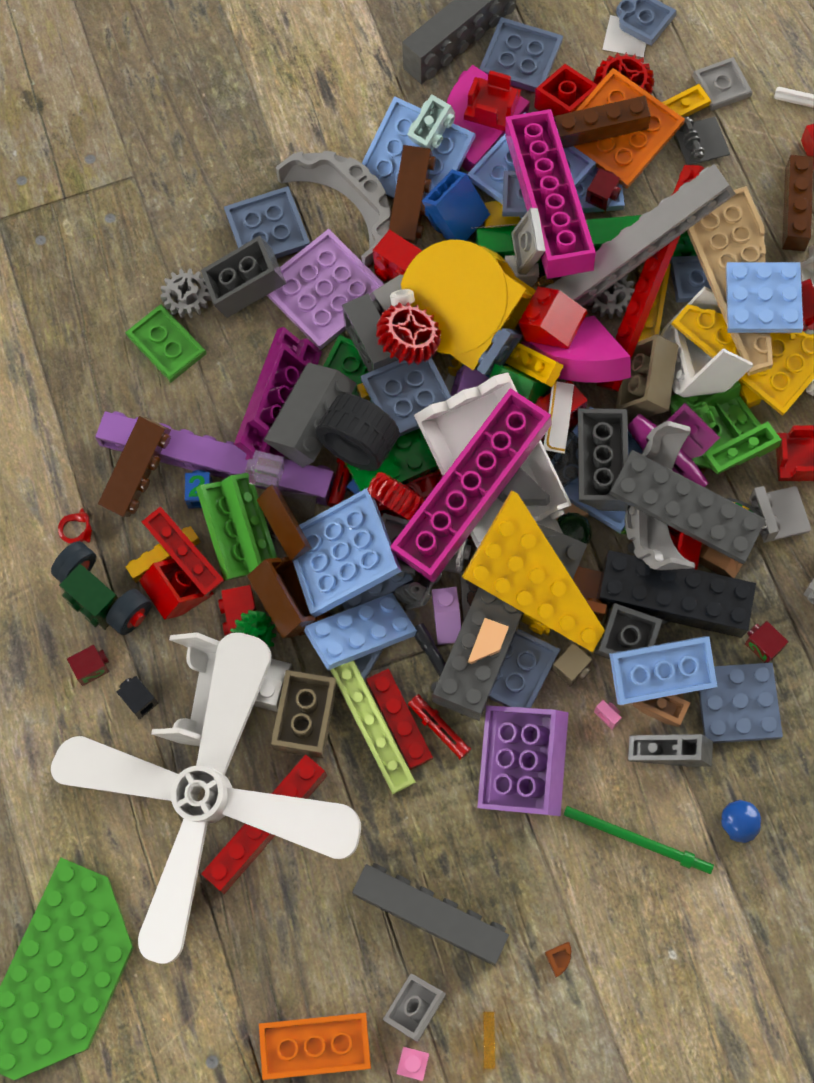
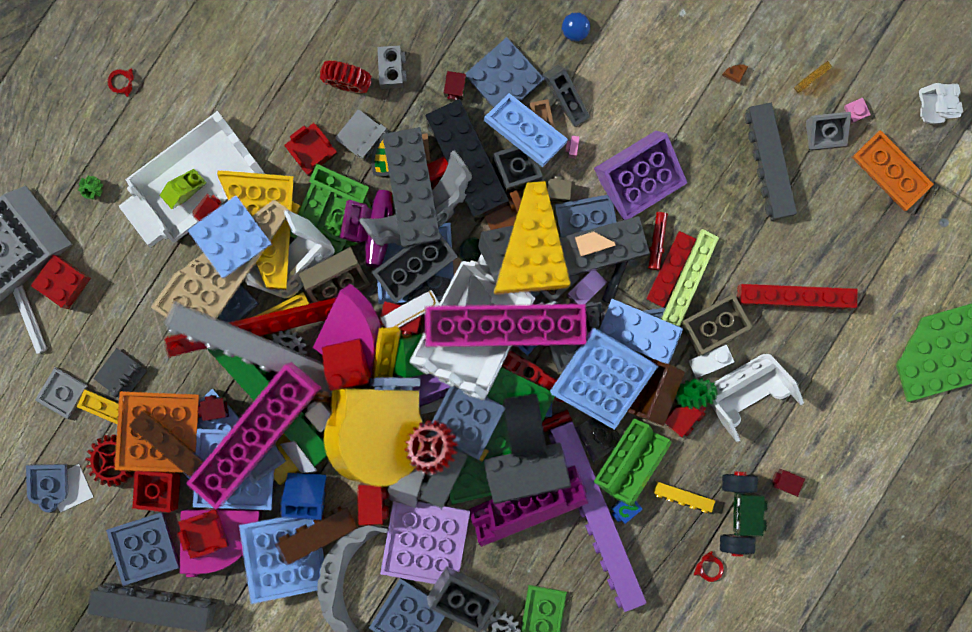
camera: 130 degrees left, 15 degrees up
(135, 466) = (646, 559): reddish brown brick -> none
(136, 696) = (783, 436): black brick -> none
(171, 589) = (698, 470): red slope -> none
(182, 551) = (676, 482): red plate -> none
(265, 469) = (587, 471): clear brick -> none
(283, 523) = (611, 431): reddish brown slope -> none
(315, 824) = (840, 417): white piece -> none
(395, 495) = (544, 368): red gear -> none
(402, 296) = (407, 472): white tile -> none
(431, 123) = (251, 558): light aqua brick -> none
(528, 241) = (304, 419): light grey tile -> none
(685, 858) = (623, 42): green bar -> none
(797, 203) = (124, 275): reddish brown brick -> none

